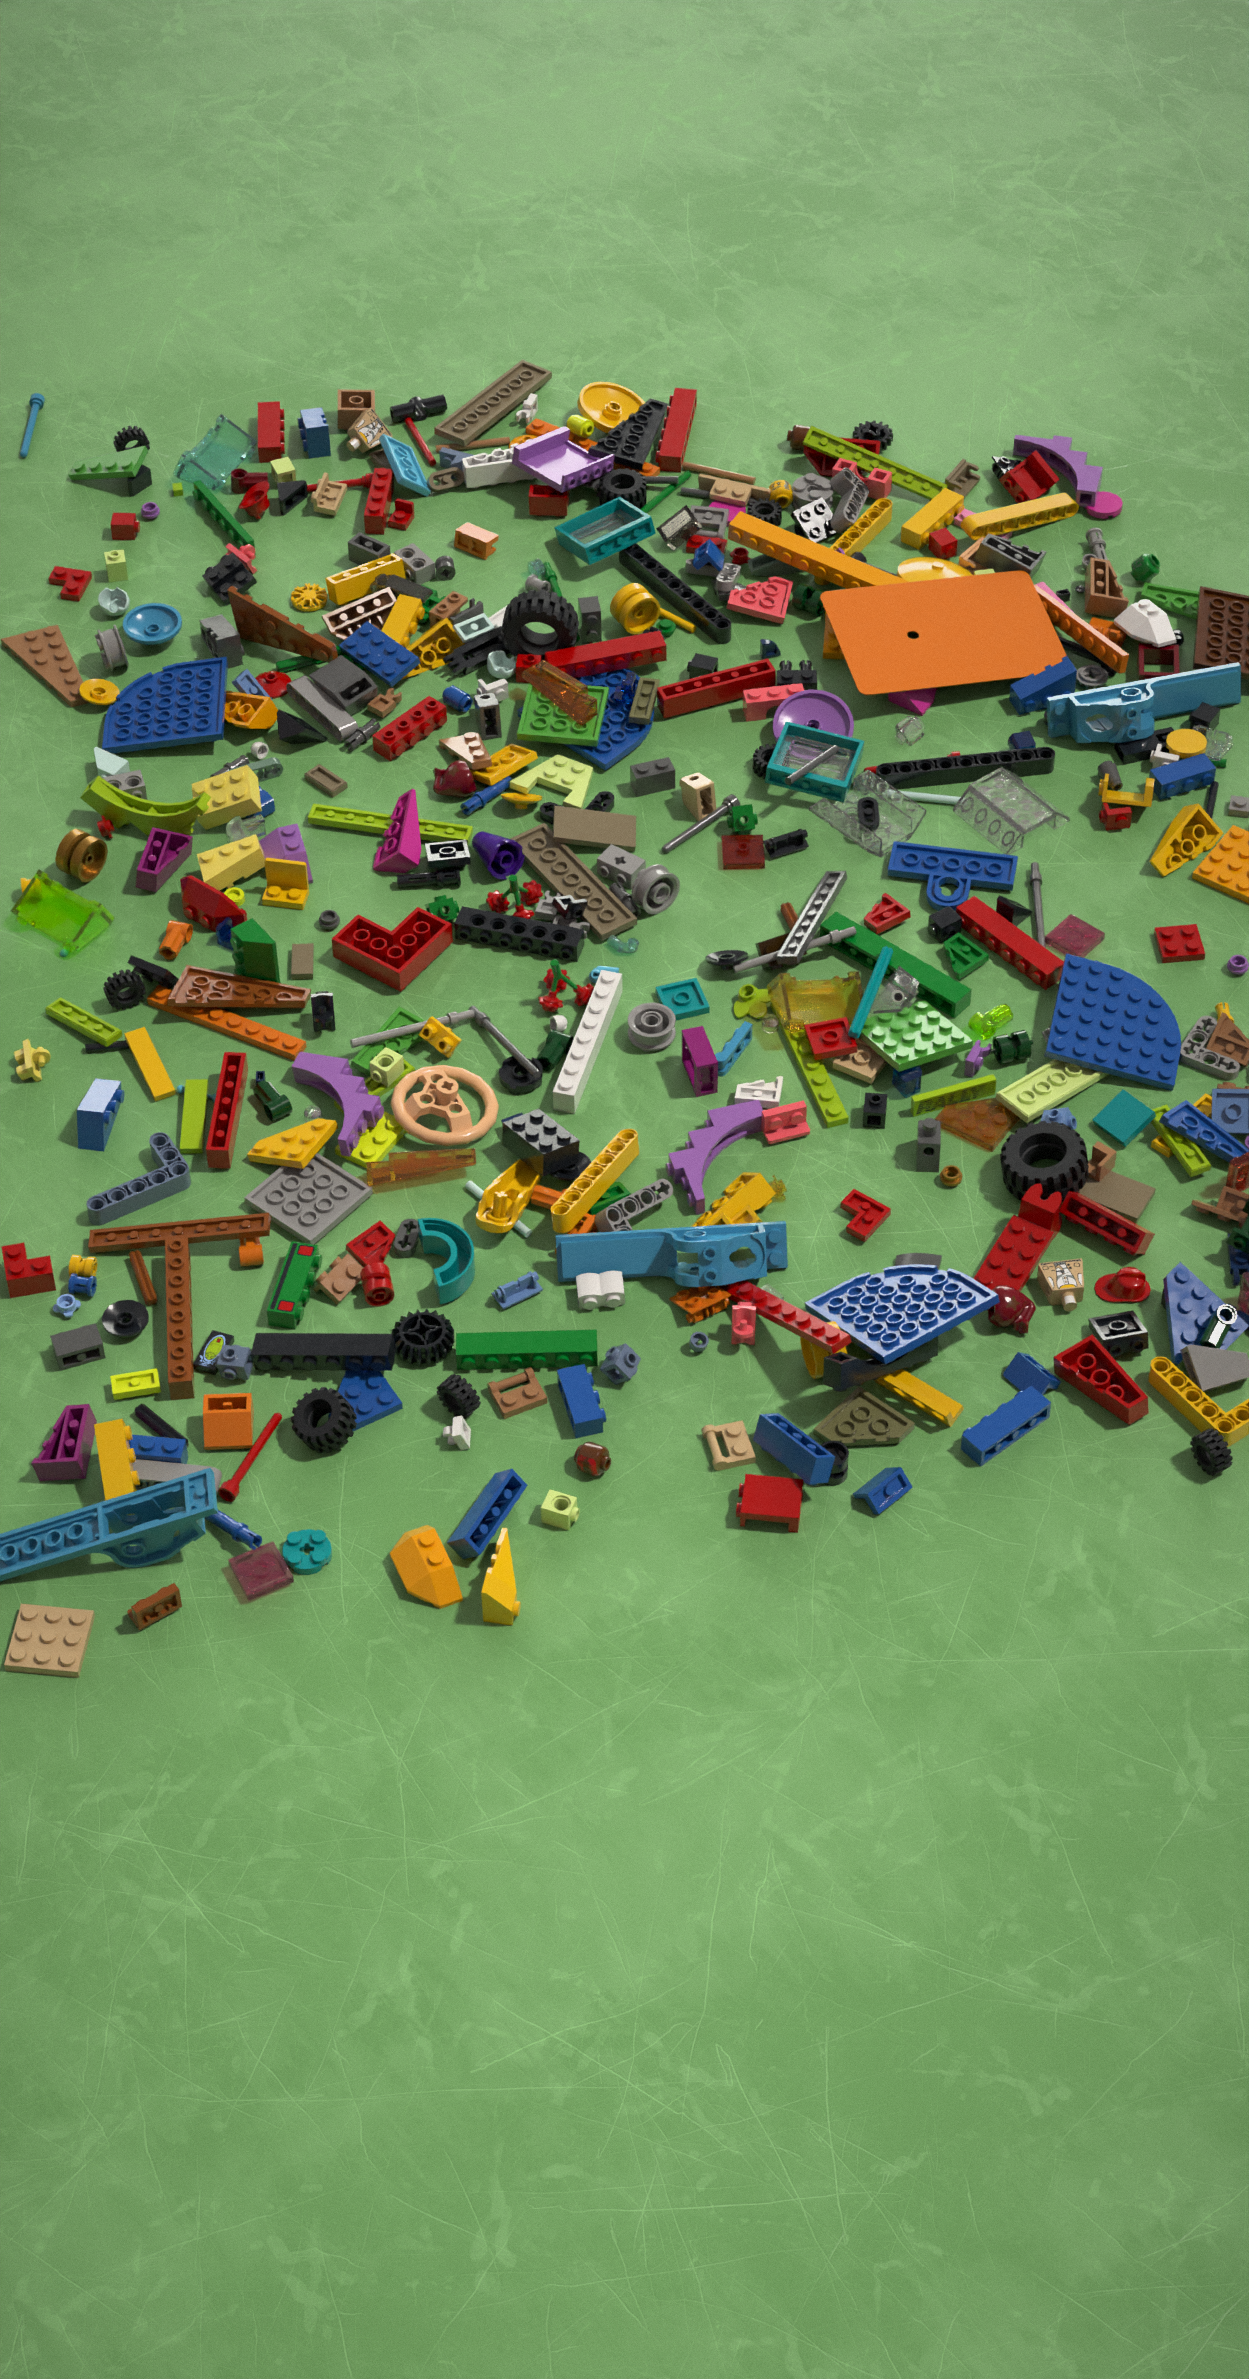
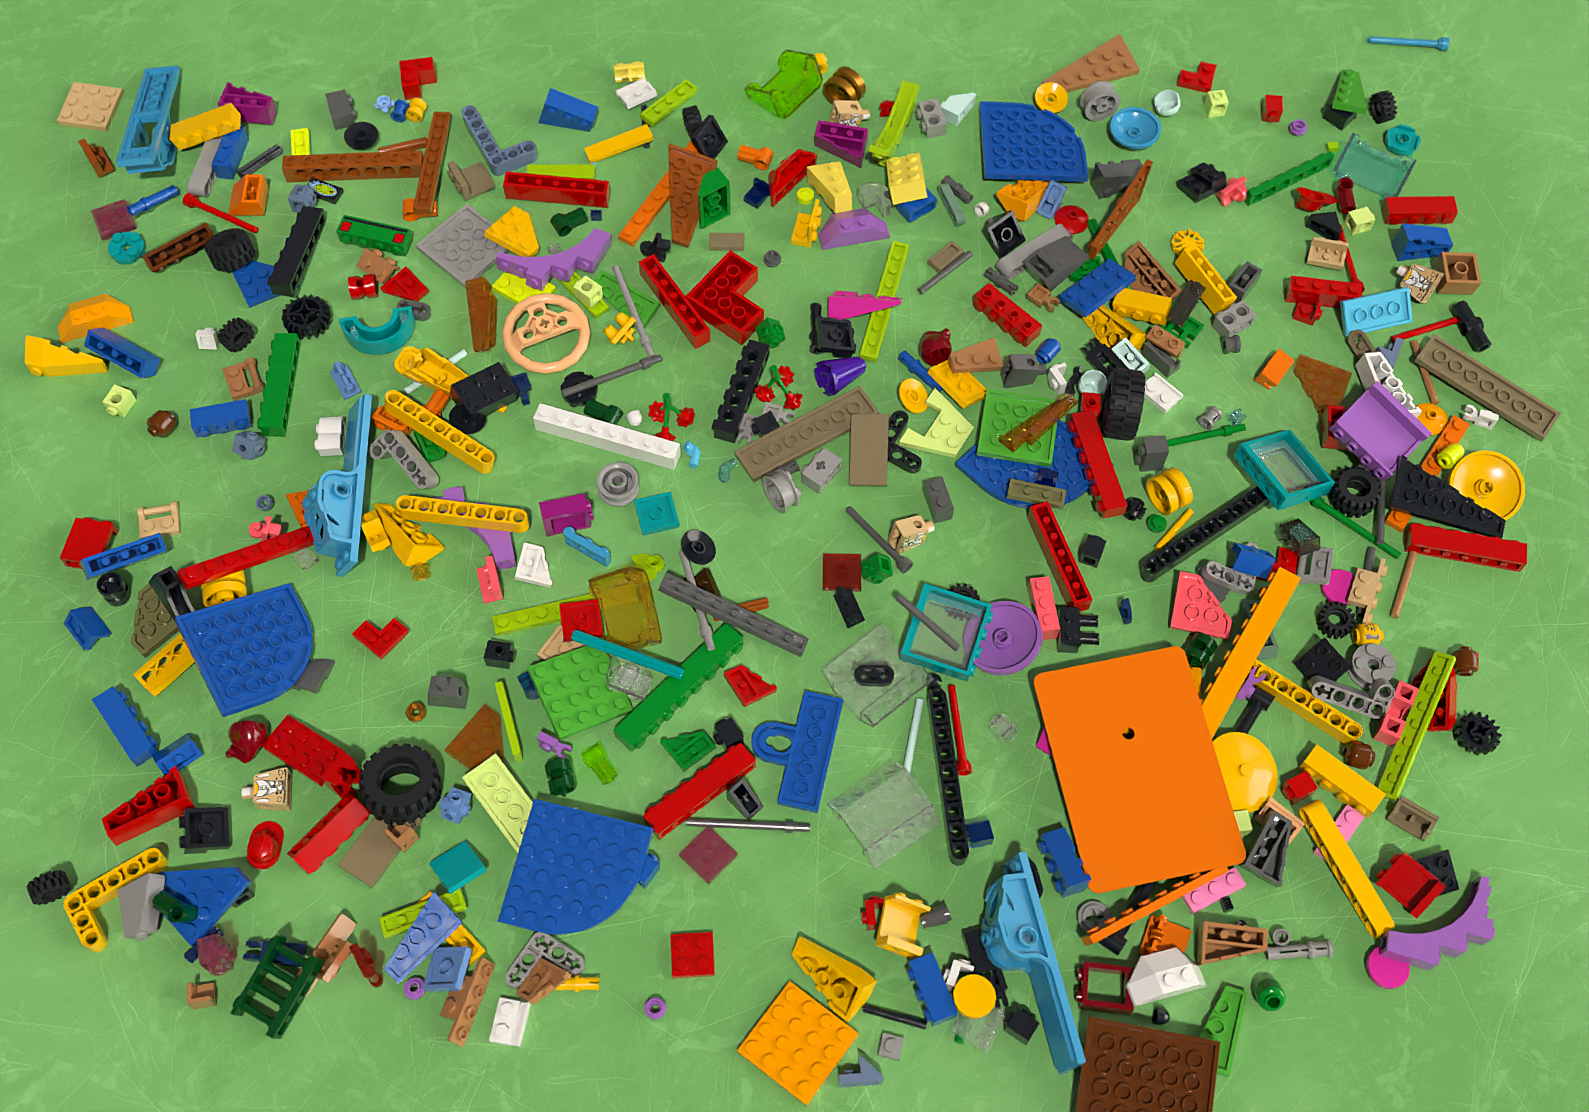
camera: 90 degrees right, 15 degrees up
(67, 1053) = (636, 93): none -> white plate
(122, 851) = (848, 113): none -> tan torso
(172, 439) = (1395, 145): none -> teal plate
(204, 1199) = (470, 180): none -> dark tan bracket
(314, 1483) = (176, 247): none -> reddish brown brick
(350, 782) = (945, 272): none -> dark grey bar
(398, 991) = (674, 301): none -> red brick
(492, 510) = (1322, 382): none -> clear orange plate
(512, 682) = (1070, 385): none -> black piece
(711, 1140) = (455, 508): none -> yellow beam
(905, 506) = (1358, 755): none -> reddish brown head

